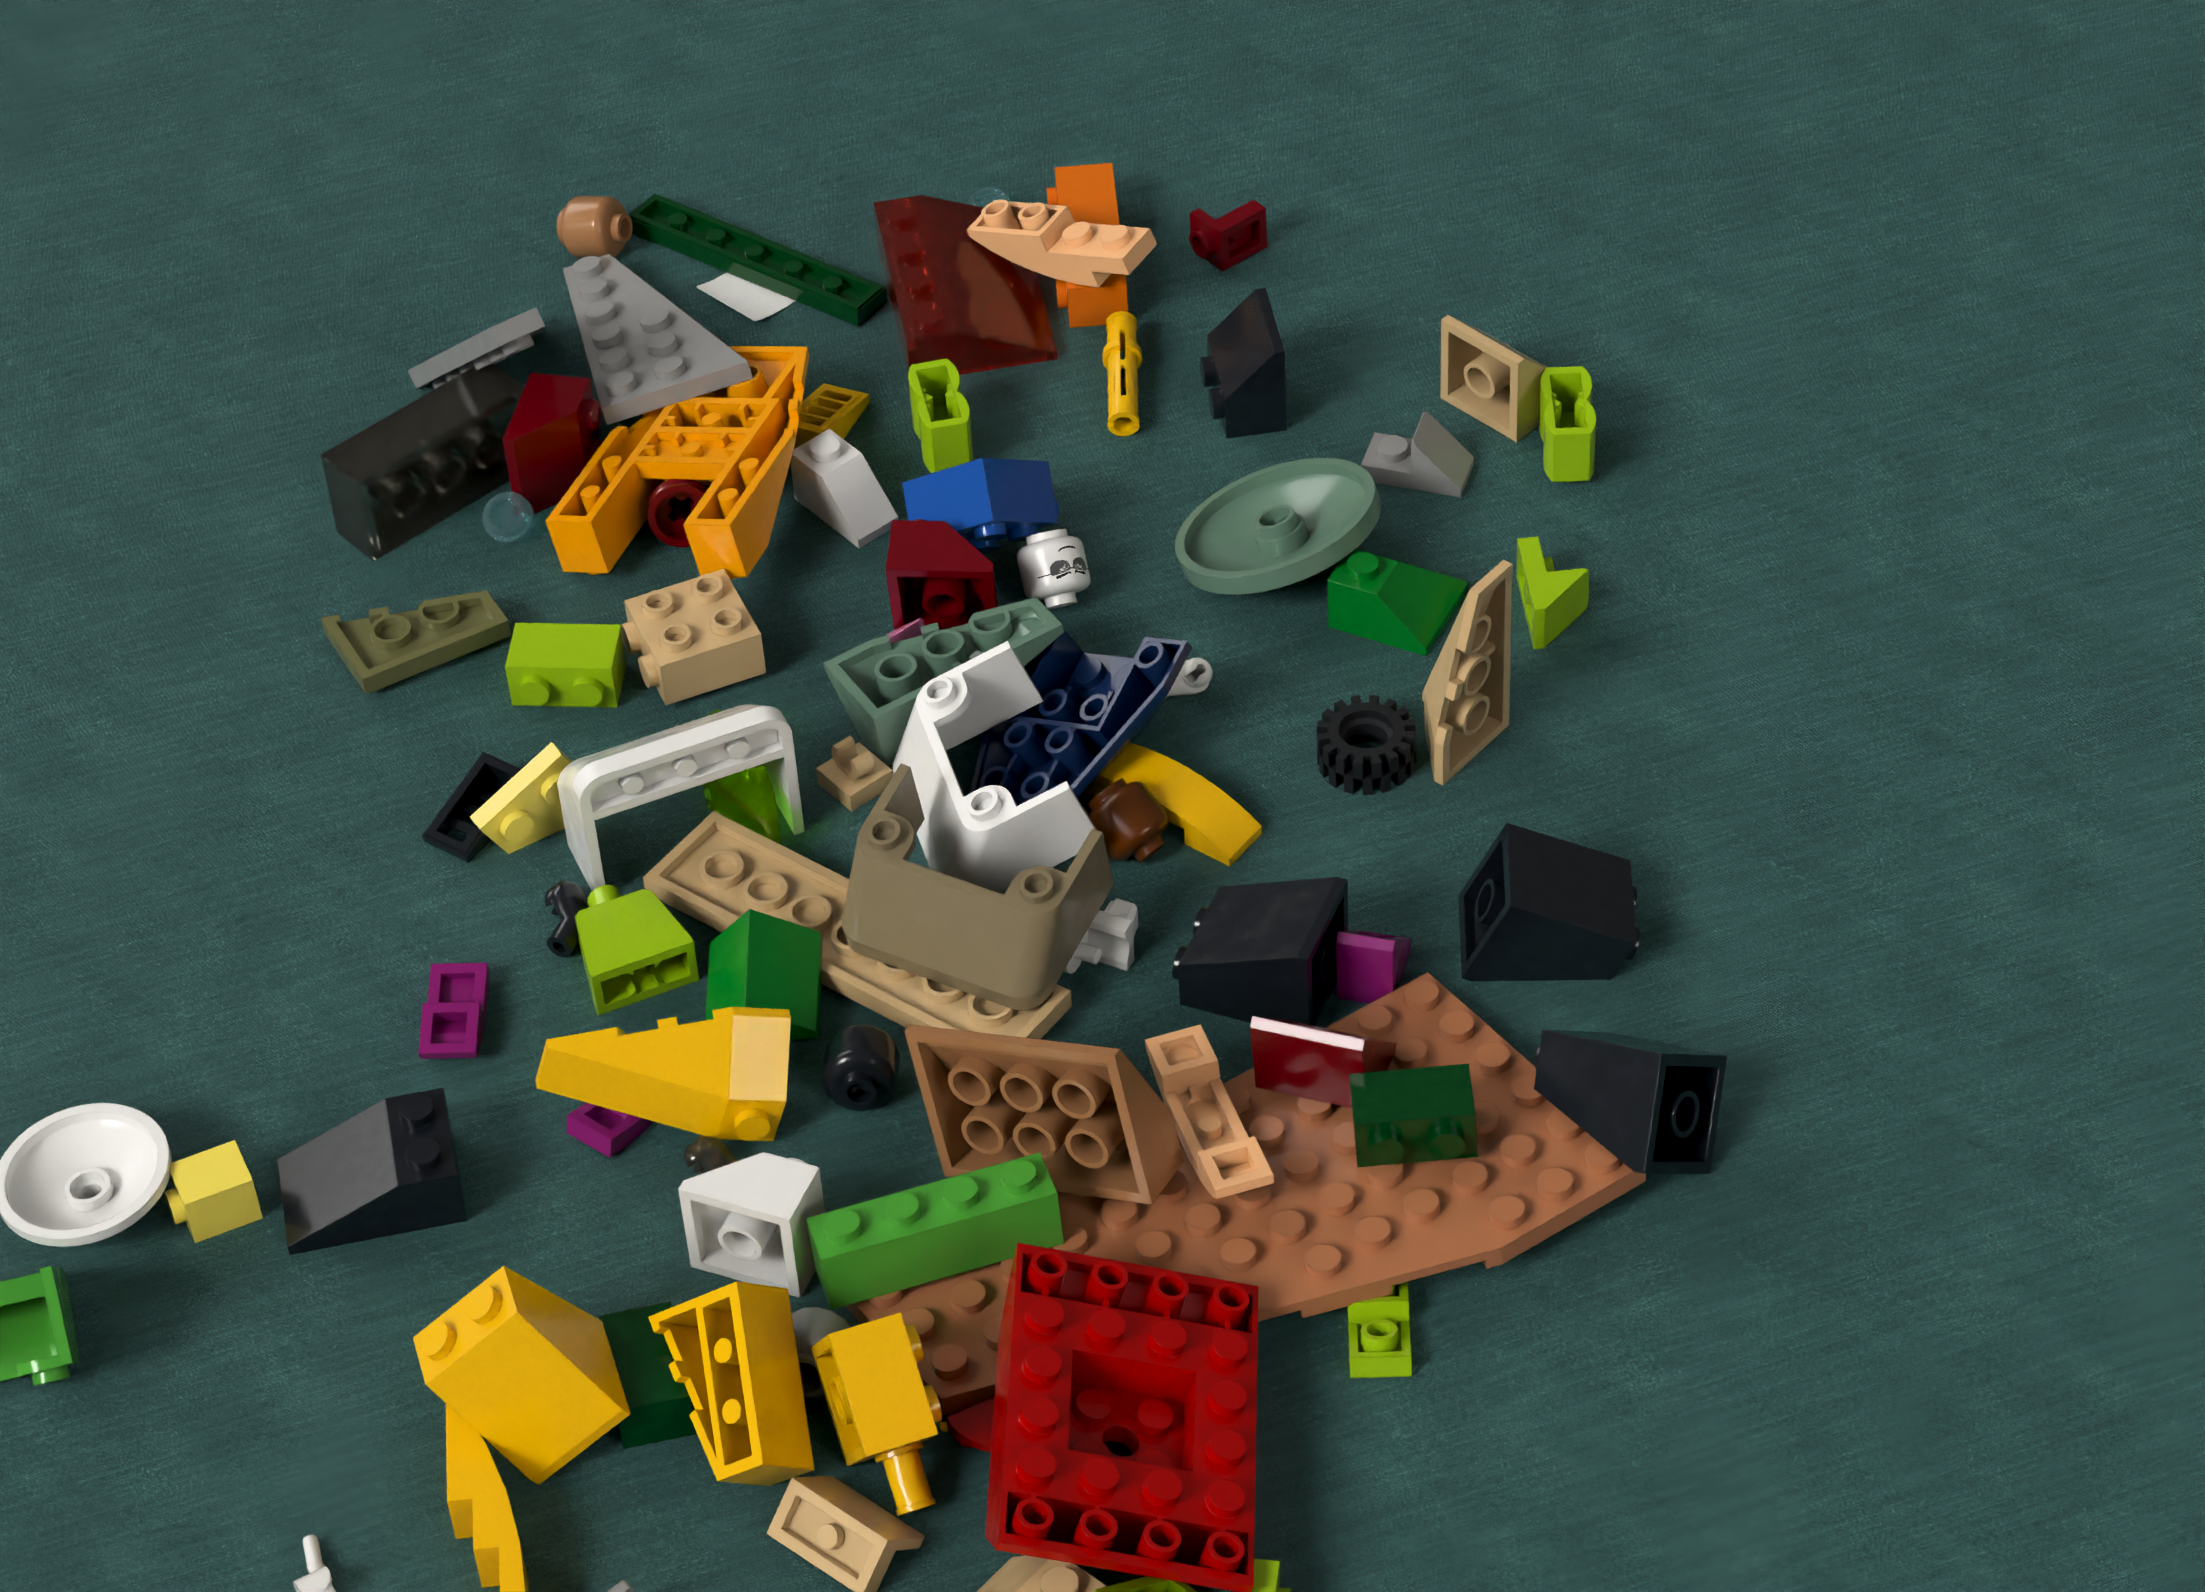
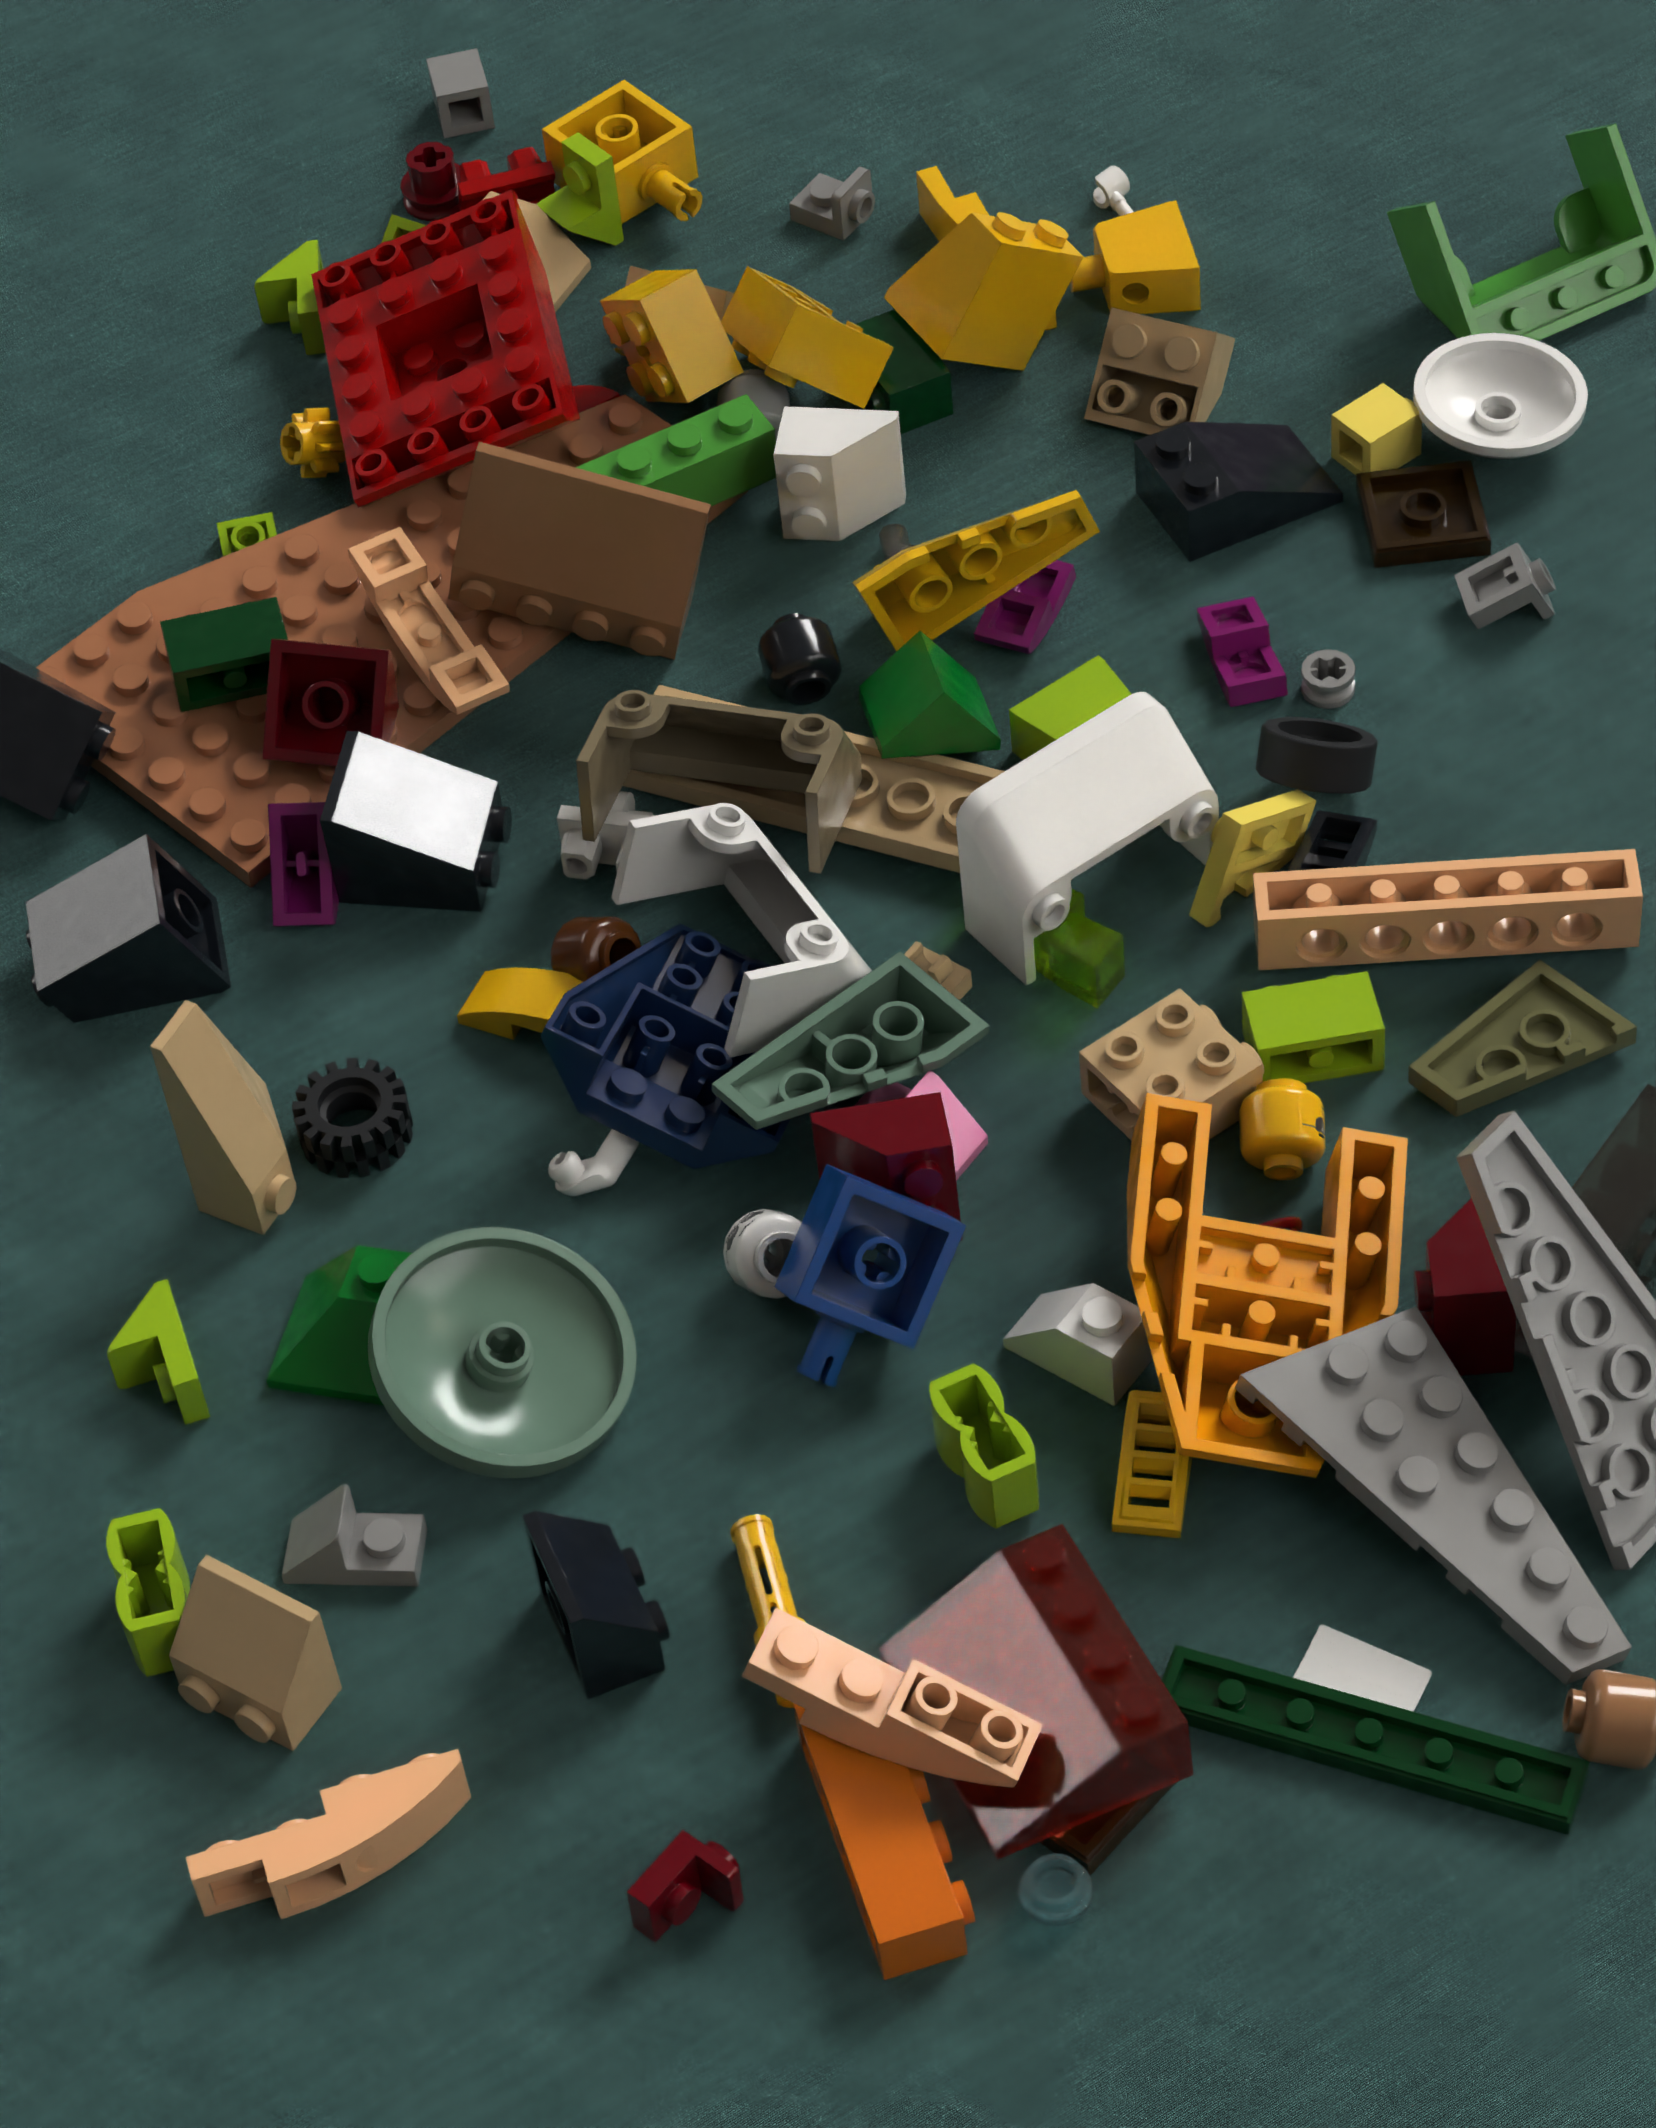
camera: 170 degrees right, 5 degrees up
(193, 1007) = (1504, 585): none -> light grey bracket
(220, 1107) = (1423, 514): none -> dark brown tile
(334, 1456) = (1143, 263): none -> yellow torso
(374, 1304) = (1157, 373): none -> tan slope
(395, 957) = (1328, 691): none -> light grey bush
(409, 713) = (1447, 909): none -> light nougat brick
(414, 842) = (1316, 755): none -> black tyre
(618, 583) = (1282, 1128): none -> yellow head
(1289, 1414) = (313, 443): none -> yellow gear
(1454, 284) = (365, 1832): none -> light nougat slope

